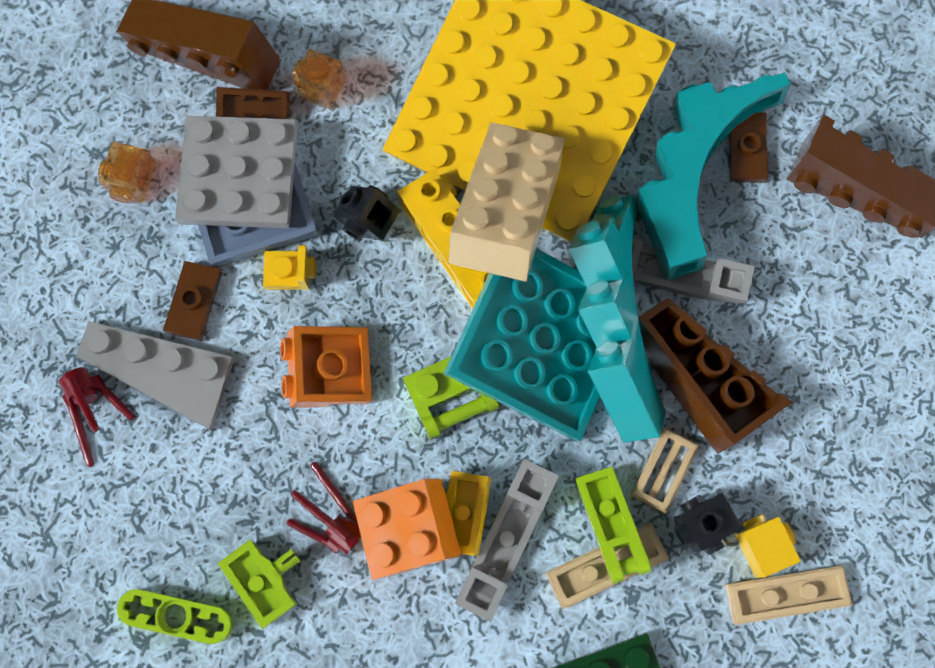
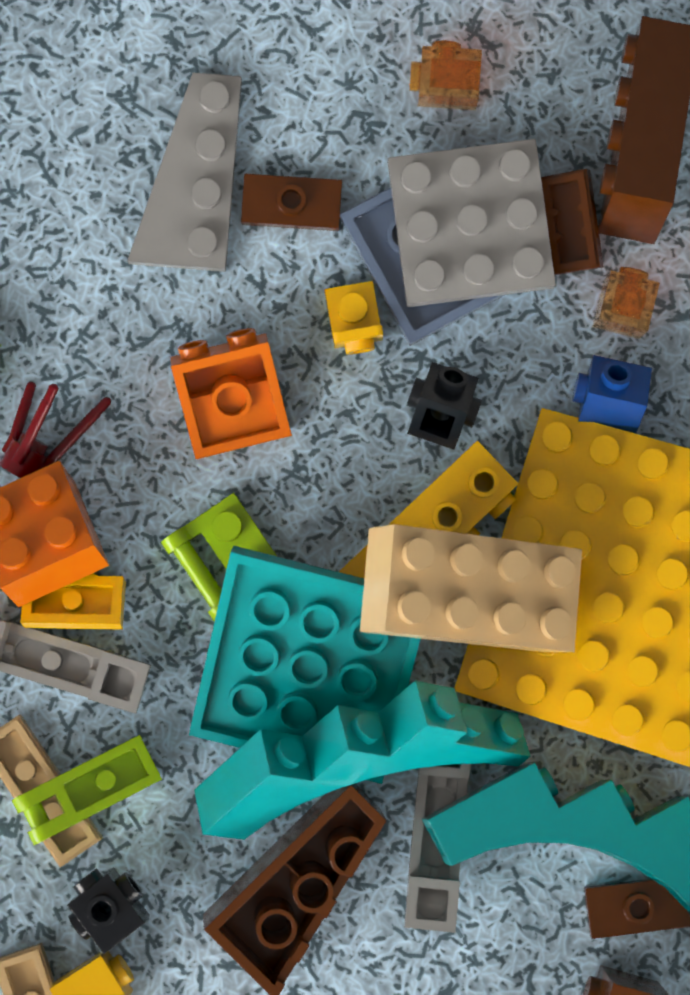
camera: 80 degrees right, 10 degrees up
(81, 391) = (146, 87): dark red plant -> none
(381, 96) = (613, 393): none -> blue brick
(682, 469) = (130, 833): tan tile -> none

